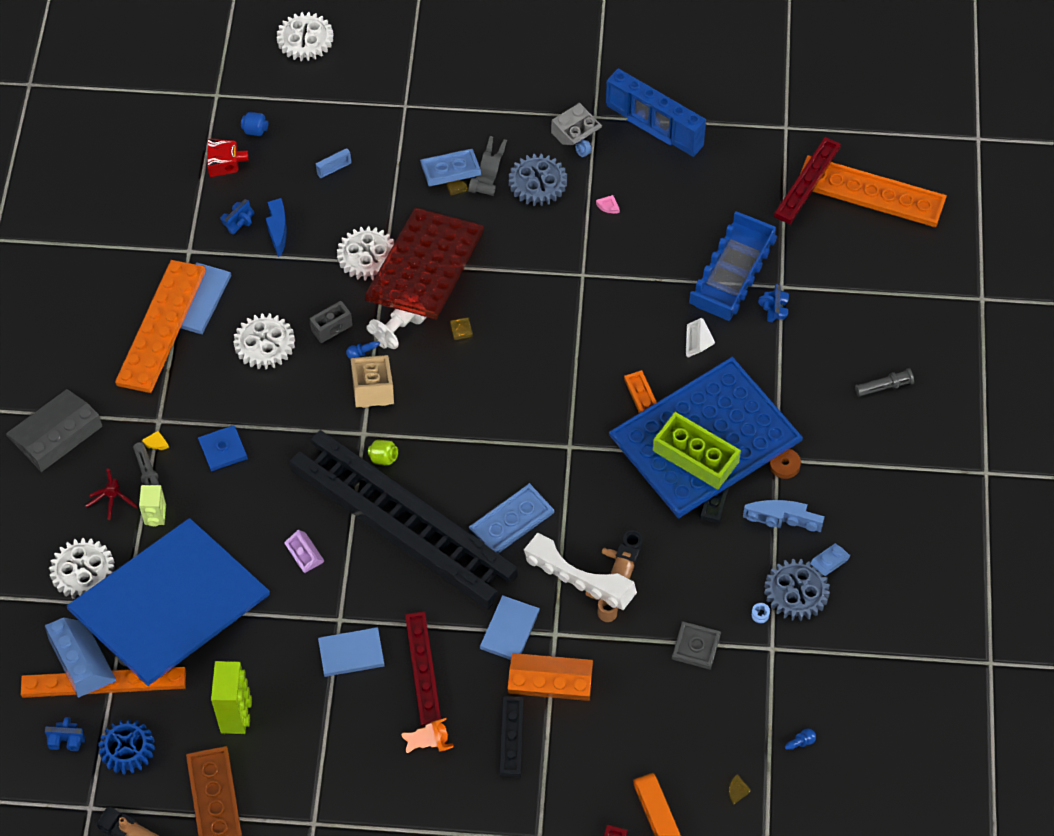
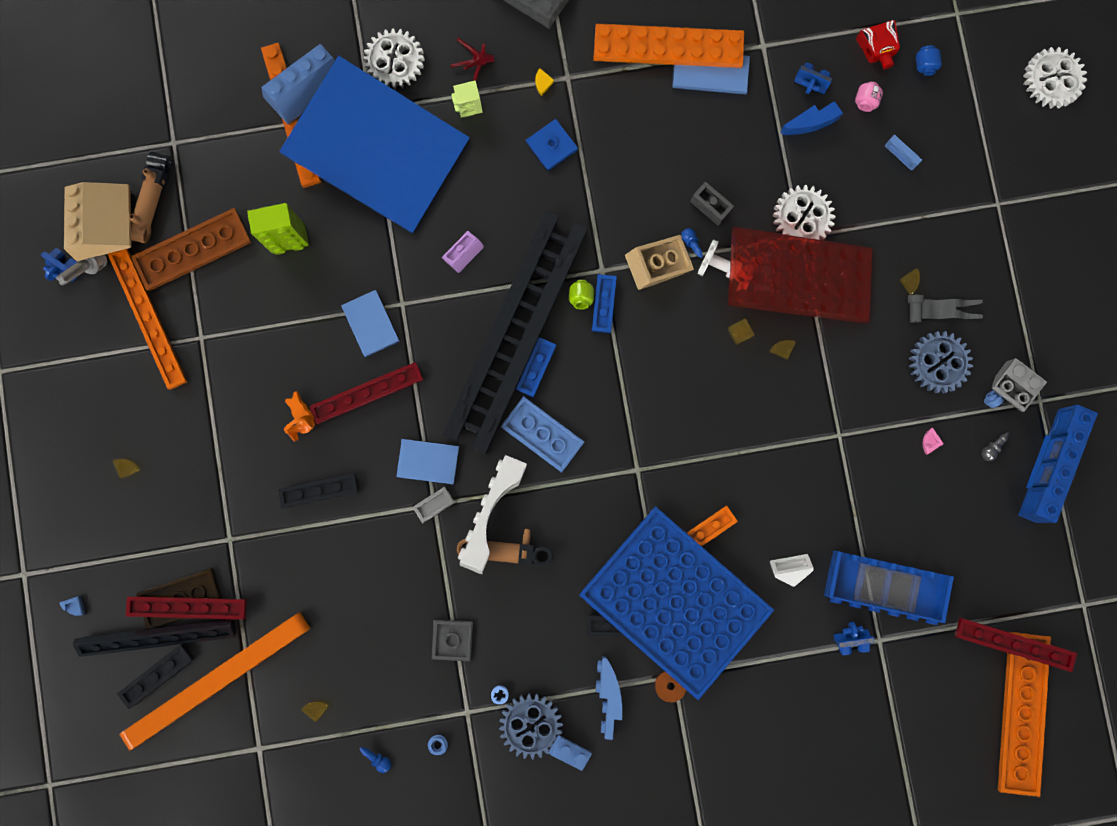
camera: 75 degrees right, 25 degrees up
(64, 732) = (229, 106): blue hips -> none
(134, 734) = (226, 168): blue gear -> none
(148, 476) = (503, 87): dark grey pin -> none
(264, 341) = (659, 144): white gear -> none
(271, 176) = (869, 96): none -> bright pink head
(400, 436) = (604, 303): none -> blue plate
(444, 507) = (536, 367): none -> blue plate
(450, 167) = (931, 270): medium blue tile -> none
(488, 299) = (783, 348): none -> clear yellow tile
(550, 677) = (382, 512): orange slope -> none
(555, 633) = (433, 504): none -> light grey tile
(631, 162) = (991, 452): none -> flat silver bar
(696, 450) = (647, 600): lime brick -> none
(798, 674) = (431, 744): none -> medium blue plate
(893, 380) = (792, 777): dark grey pin -> none

